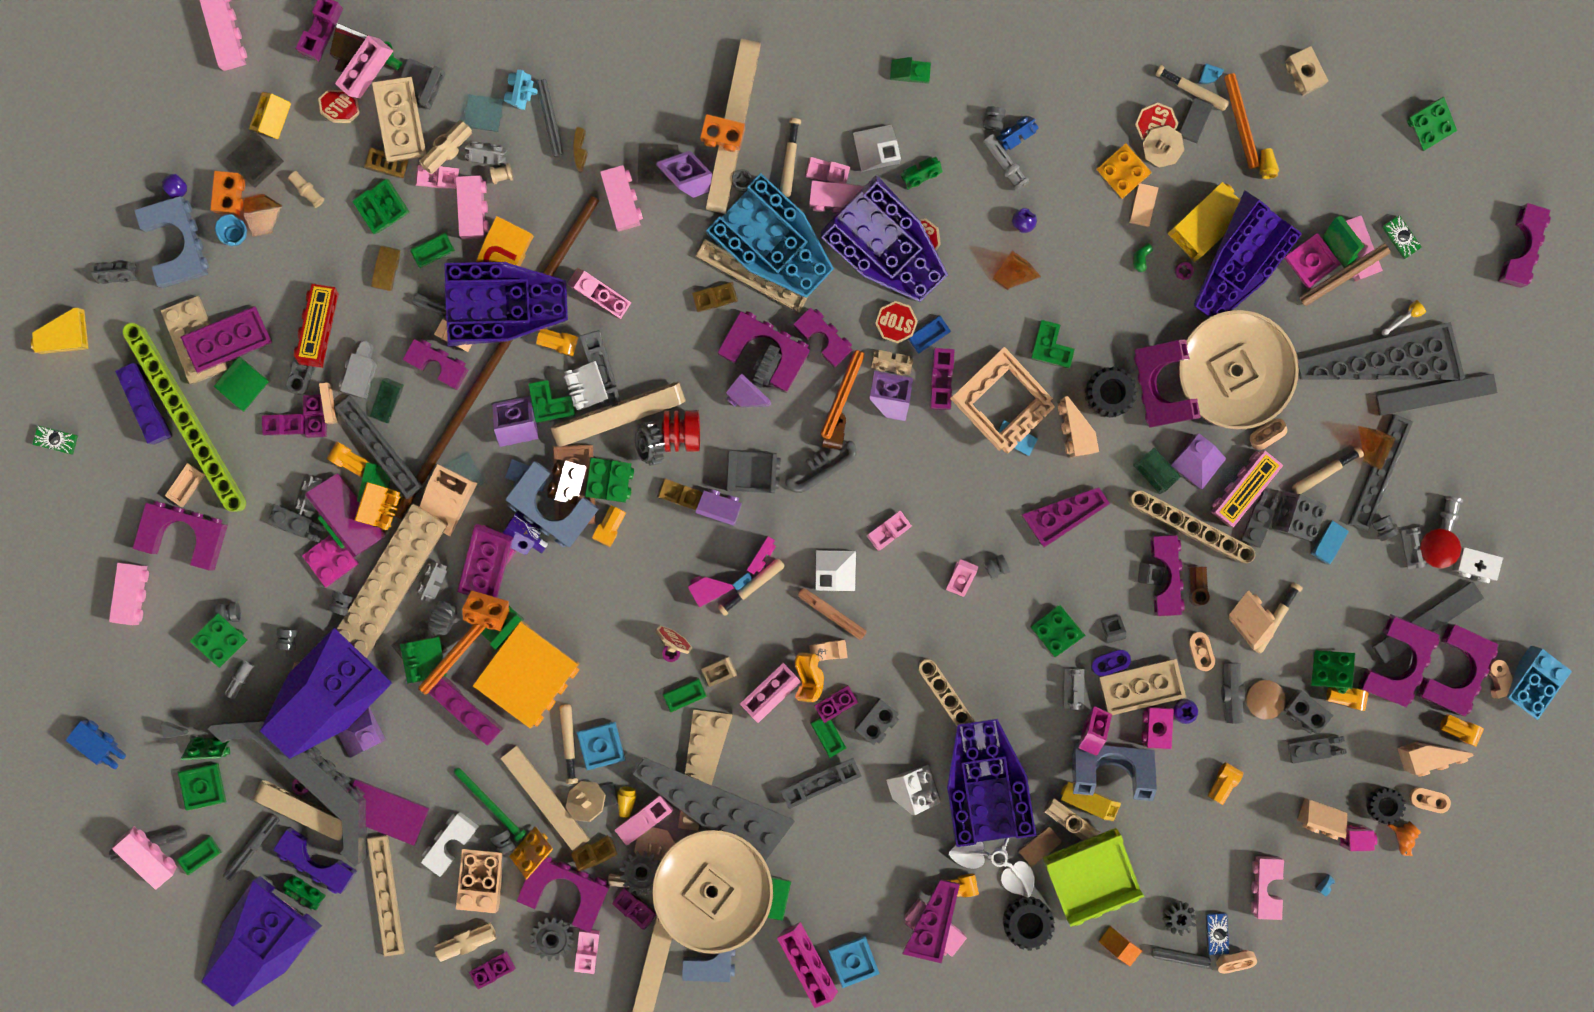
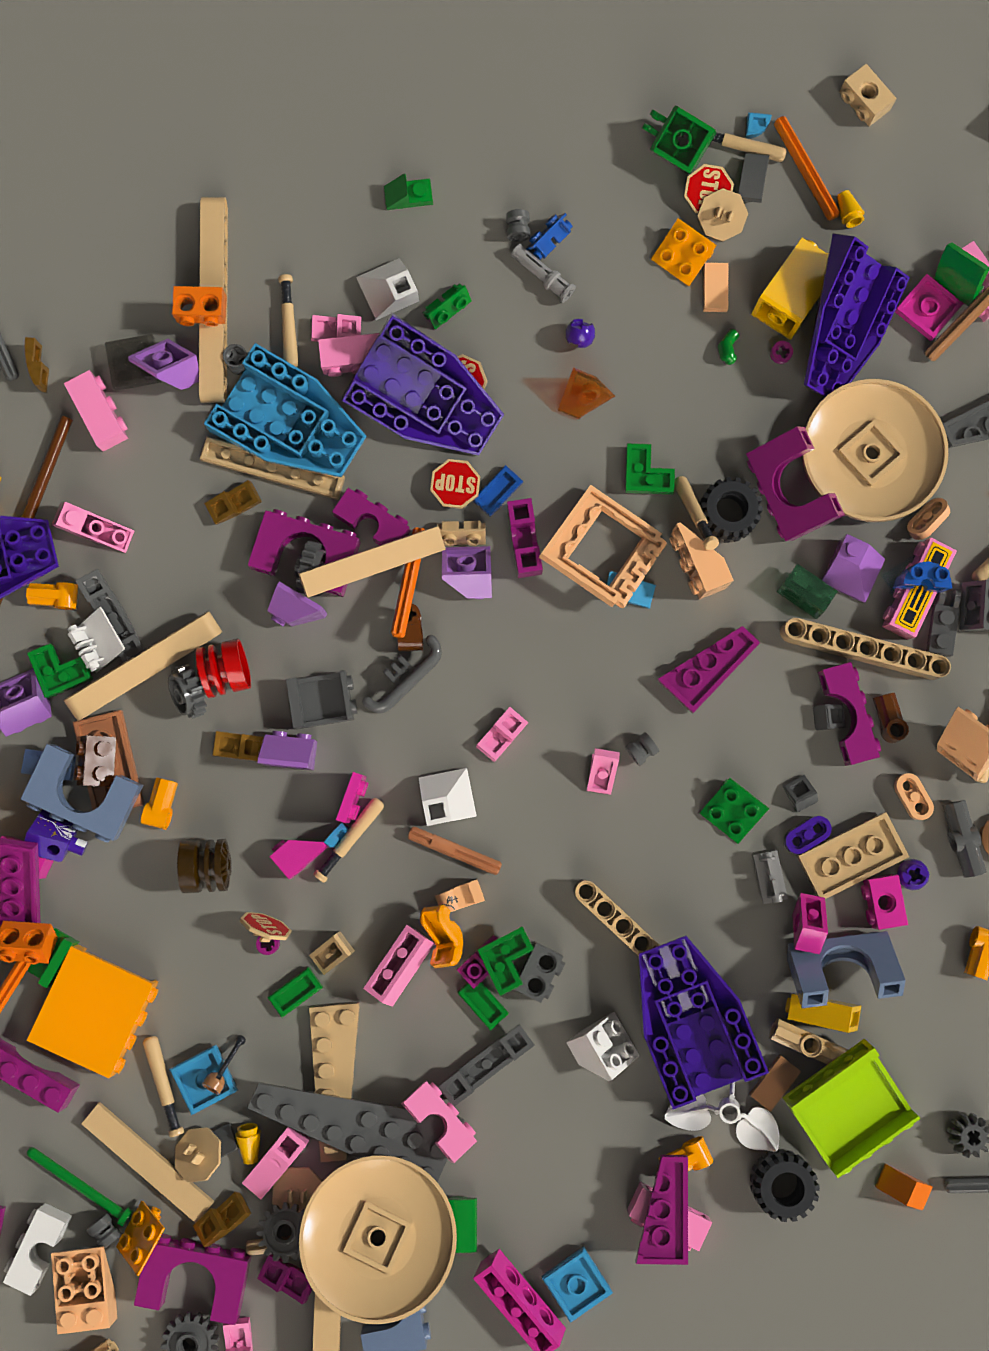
camera: 10 degrees left, 5 degrees down
(608, 480) = (147, 748): green plate -> none
(610, 749) = (215, 1081): none -> hinge
(635, 582) = (197, 866): none -> dark brown wheel
(786, 830) = (456, 1136): none -> bright pink arch
(817, 373) = (371, 561): none -> tan tile
(850, 702) = (499, 957): none -> green plate
(1081, 383) = (691, 503): none -> tan piece
(1131, 77) = (676, 125): none -> green hinge
(1255, 481) = (928, 574): none -> blue cylinder

